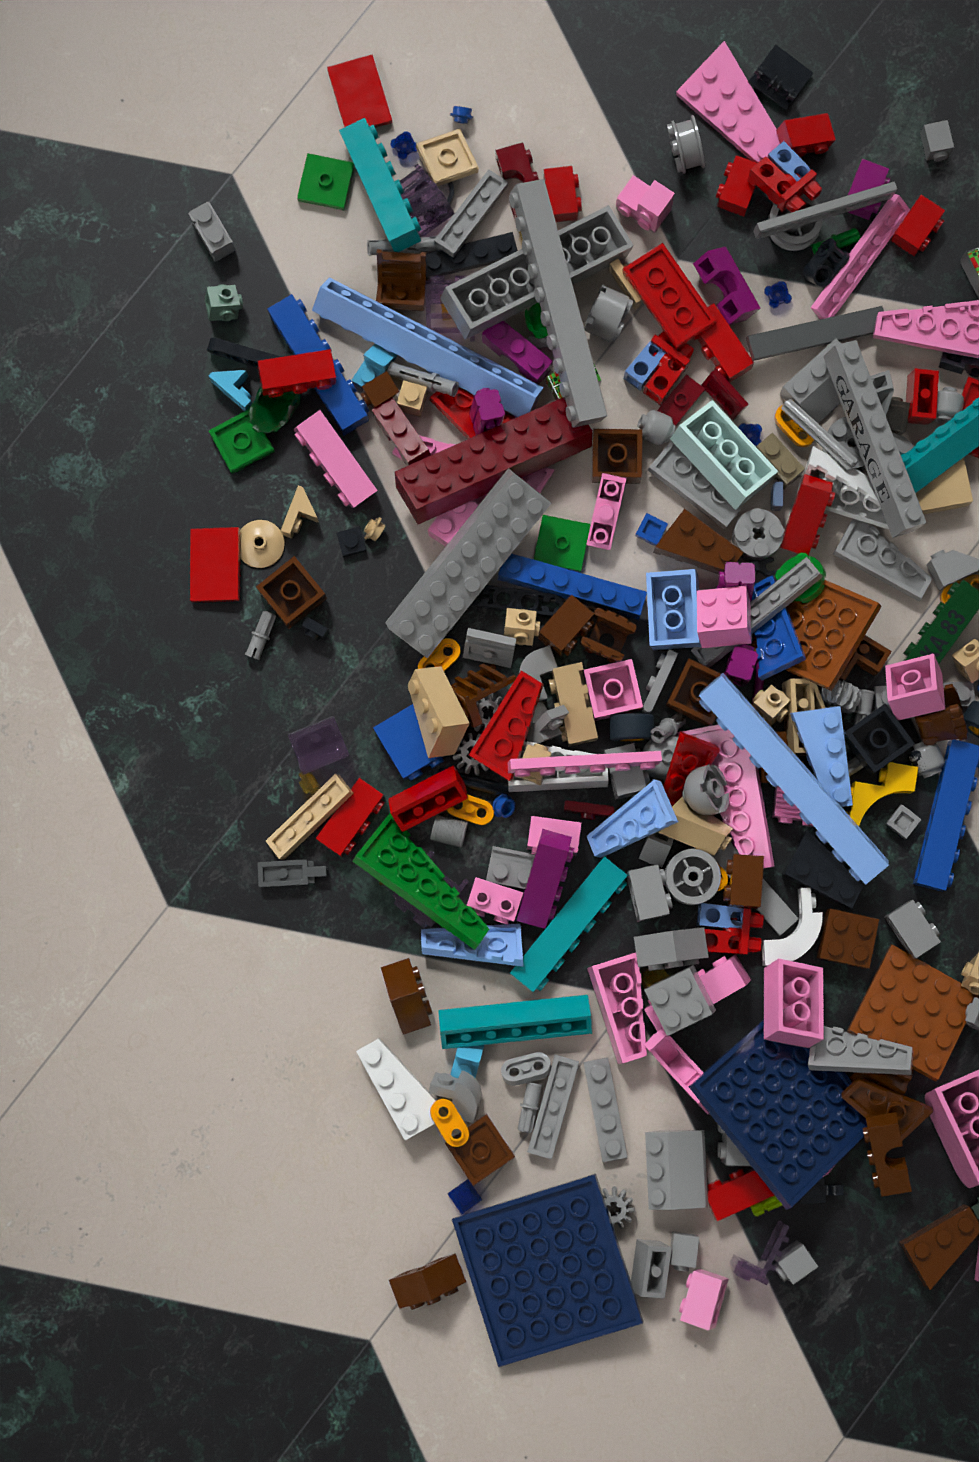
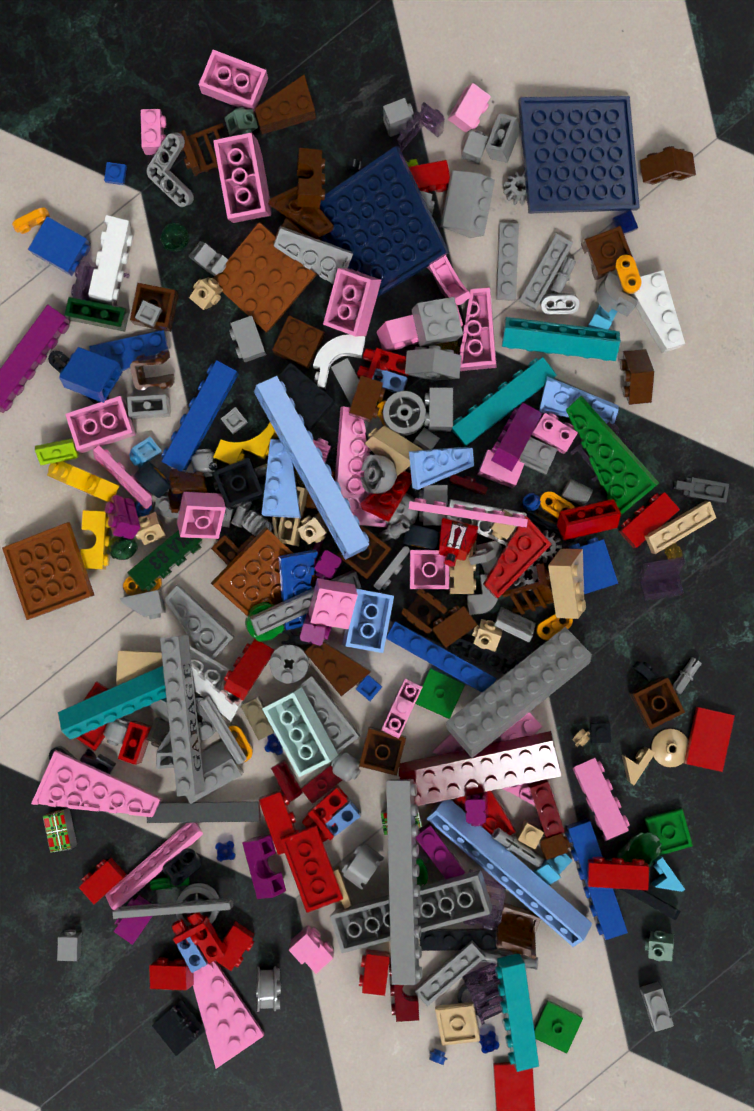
camera: 170 degrees left, 5 degrees up
(589, 729) = (456, 540): none -> red torso
(777, 496) = (266, 690): sand blue tile -> none

